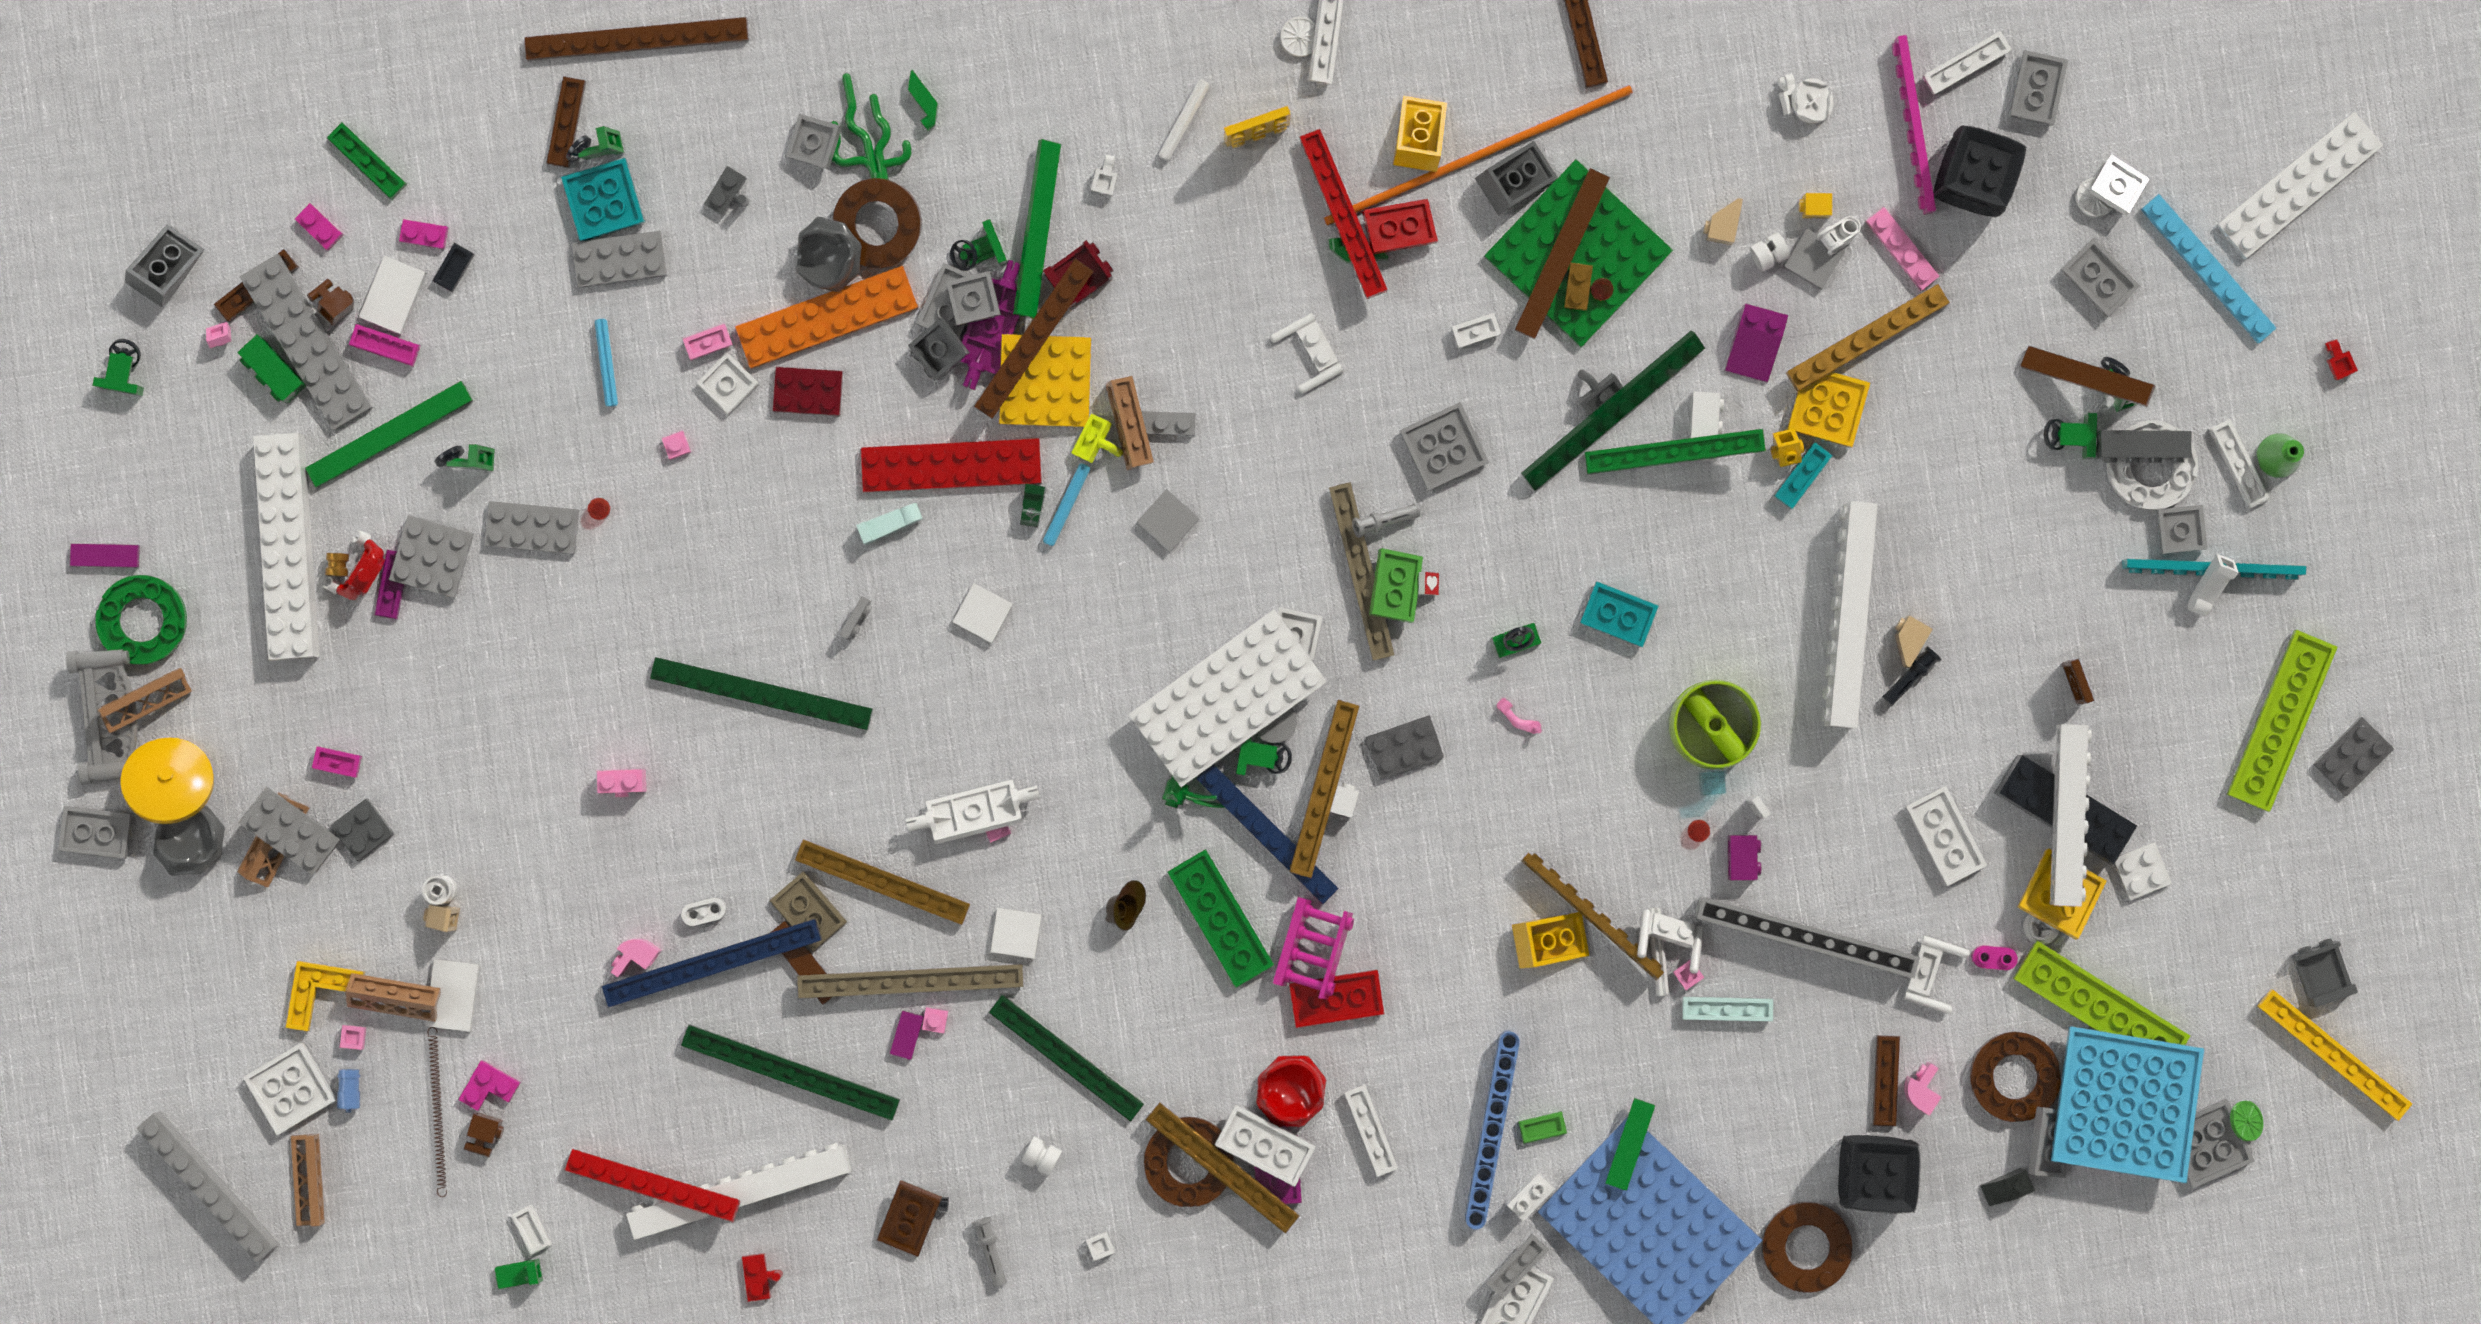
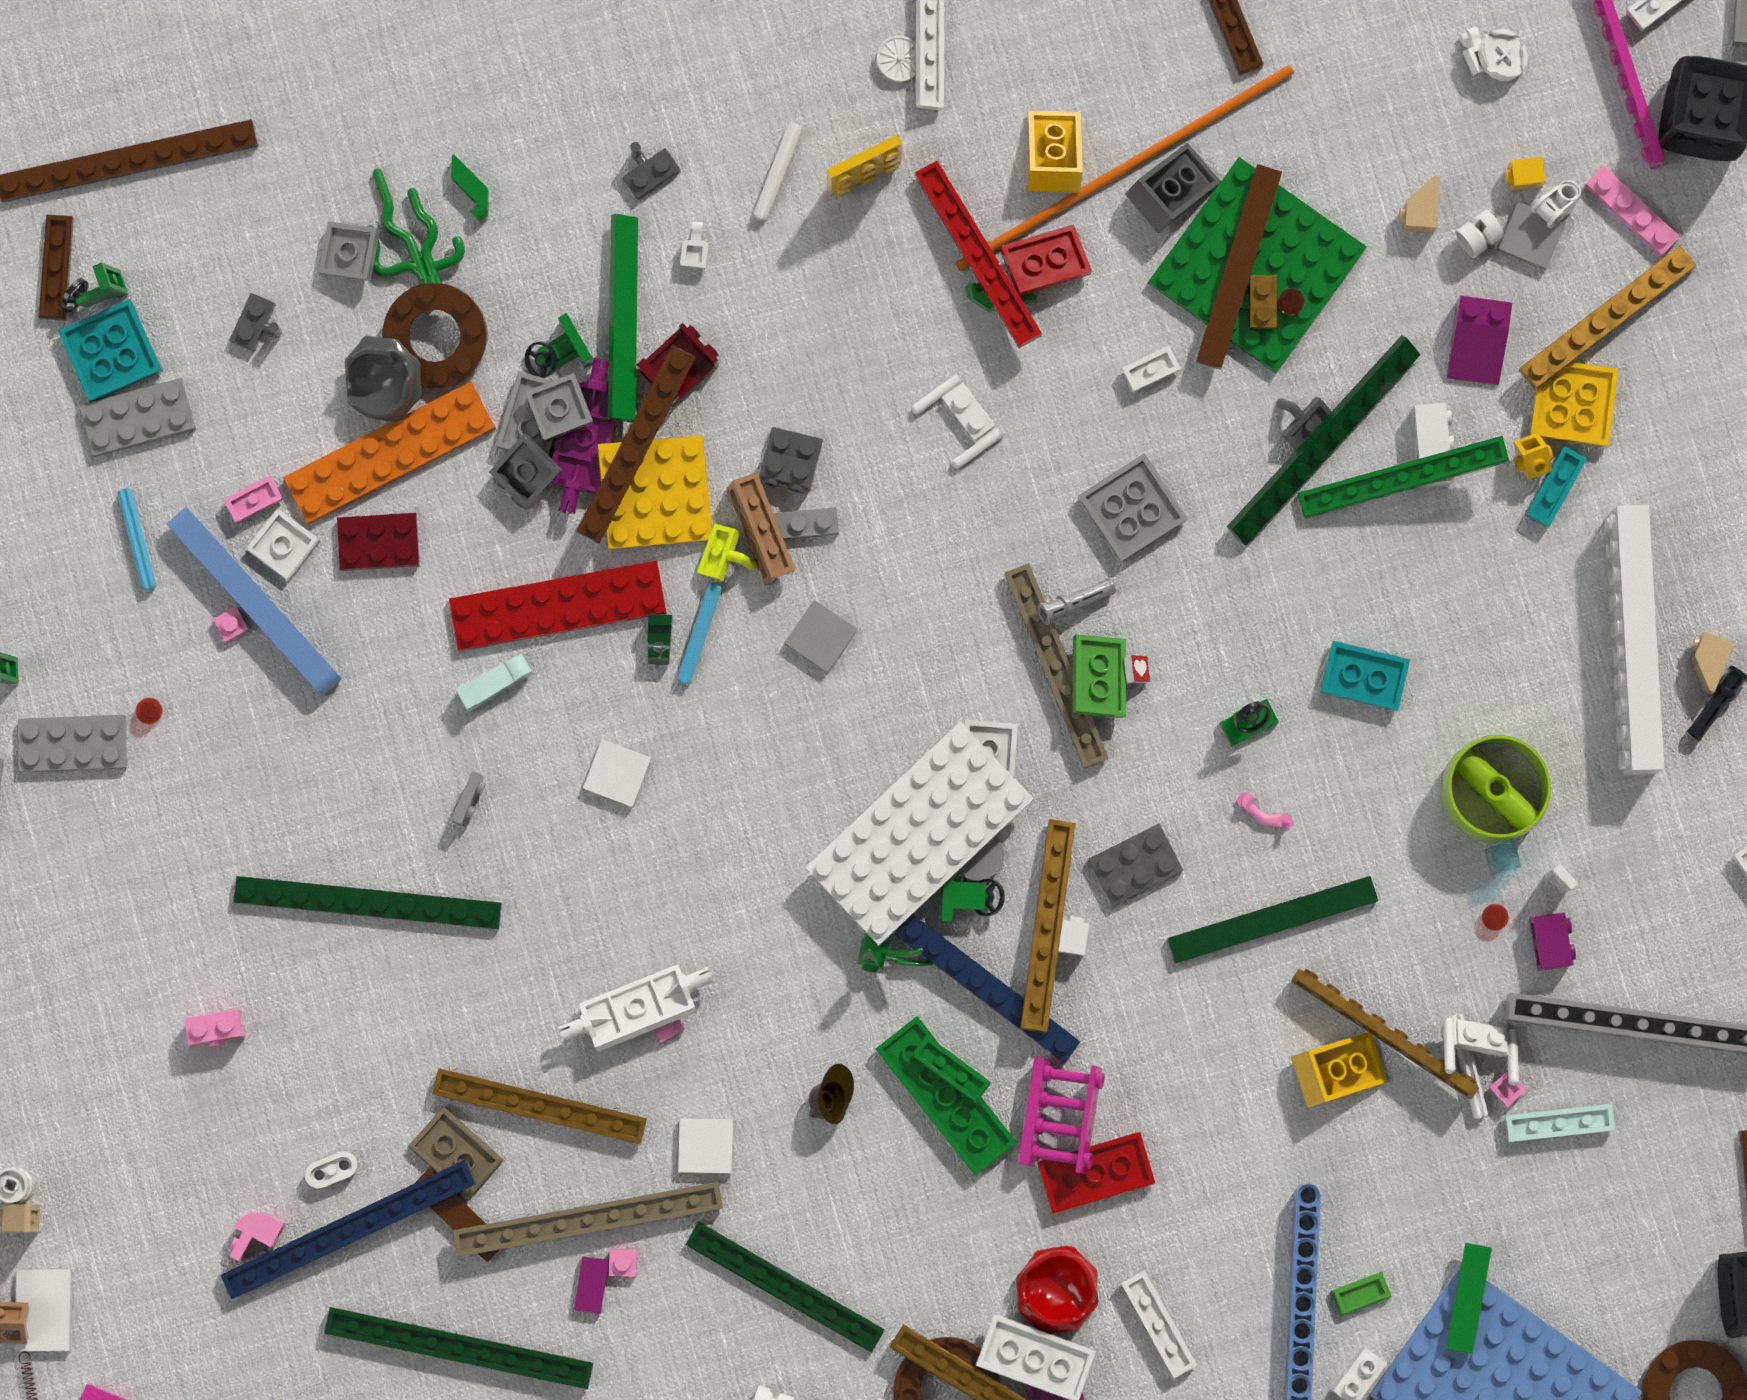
camera: 10 degrees left, 5 degrees down
(697, 428) = (254, 601): none -> medium blue beam
(1076, 106) = (650, 172): none -> dark grey plate
(1162, 367) = (790, 460): none -> dark grey plate
(1227, 897) = (951, 1069): none -> green tile
(1513, 808) = (1272, 919): none -> dark green tile

